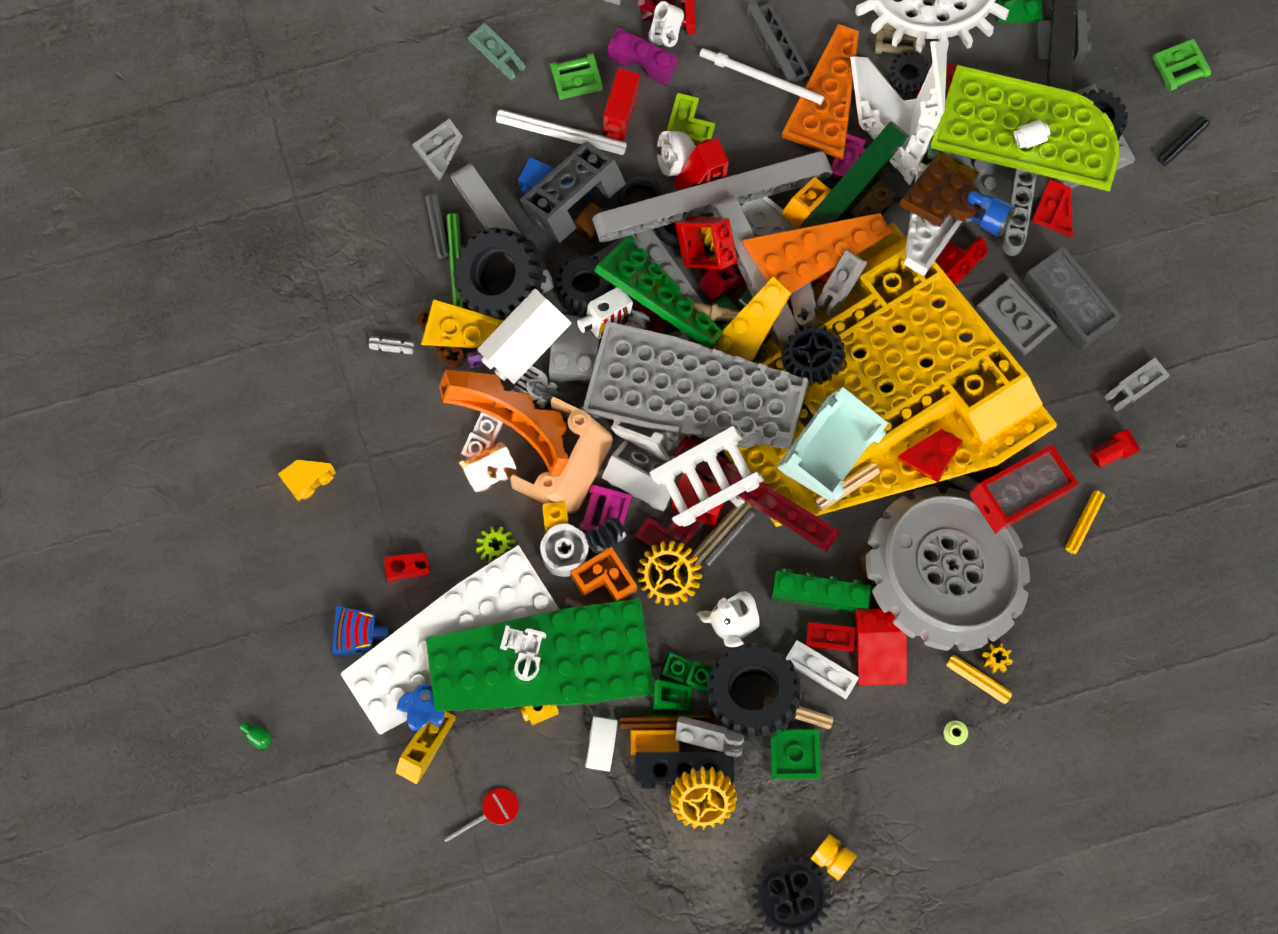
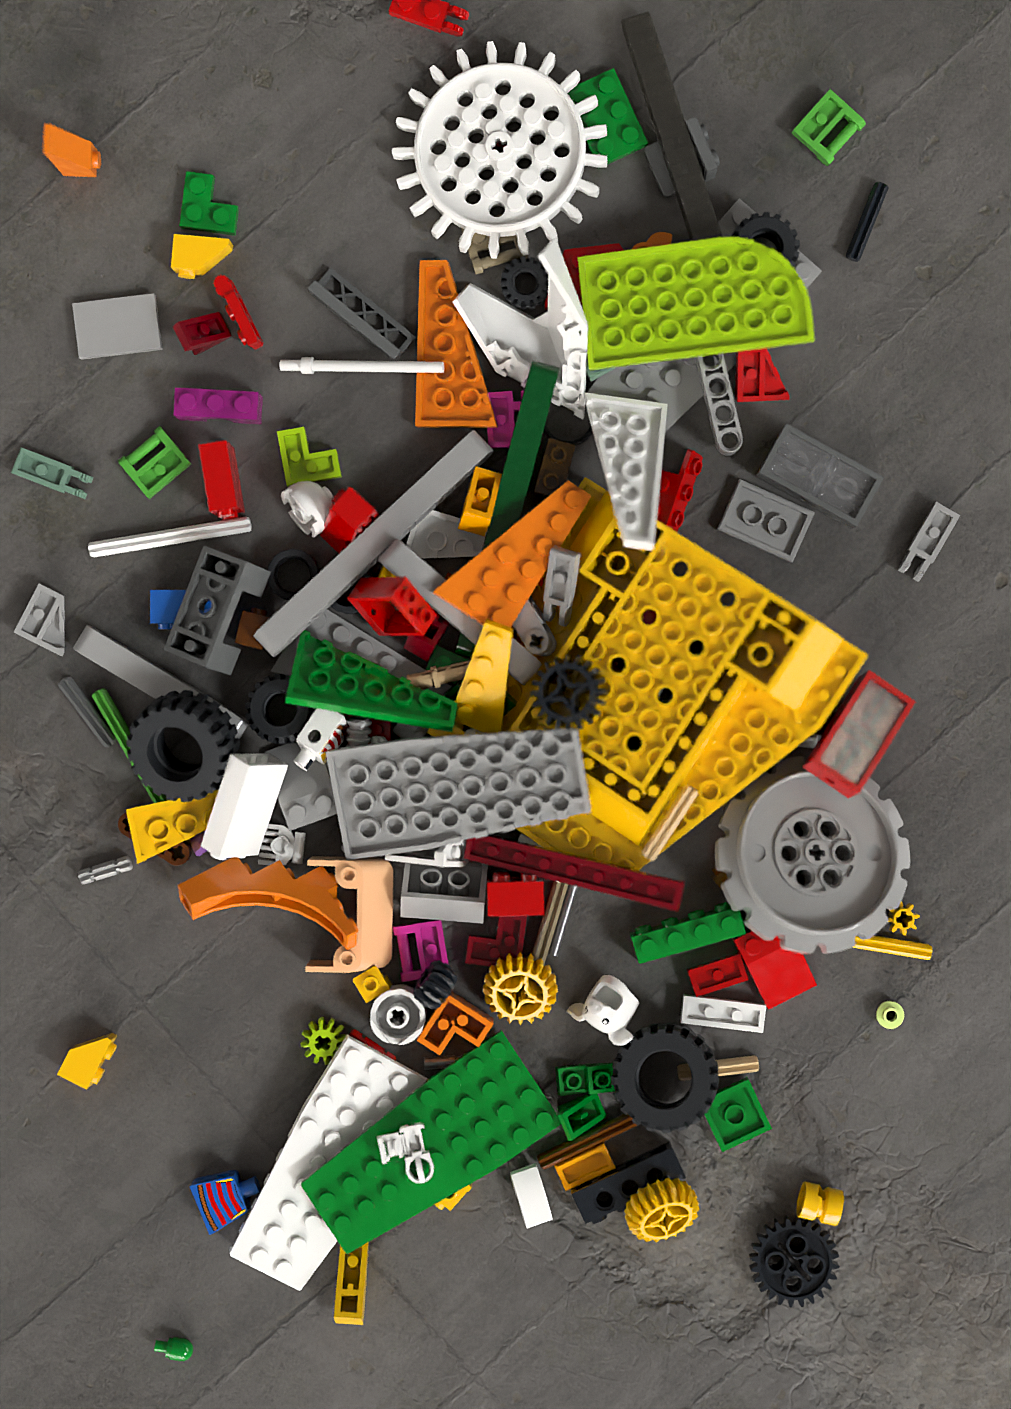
camera: 20 degrees left, 15 degrees up
(406, 566) = (241, 1106): red leg -> none
(418, 710) = (326, 1252): blue plate -> none
(476, 467) = (275, 961): brick -> none
(483, 435) = (252, 931): white slope -> none
(499, 807) = (457, 1305): red piece -> none
(548, 393) = (307, 850): dark grey axle -> none
(666, 23) = (225, 353): white piece -> none
(687, 463) = (488, 878): white fence -> none
(709, 736) = (640, 1144): light grey hinge -> none
(832, 444) = (634, 797): light aqua windscreen -> none
(932, 454) = (747, 749): red wing -> none
(948, 190) = (633, 423): reddish brown plate -> none
(1031, 134) = (700, 314): white brick -> none
(1084, 522) = (933, 722): yellow axle -> none
(1119, 446) = (938, 621): red piece -> none

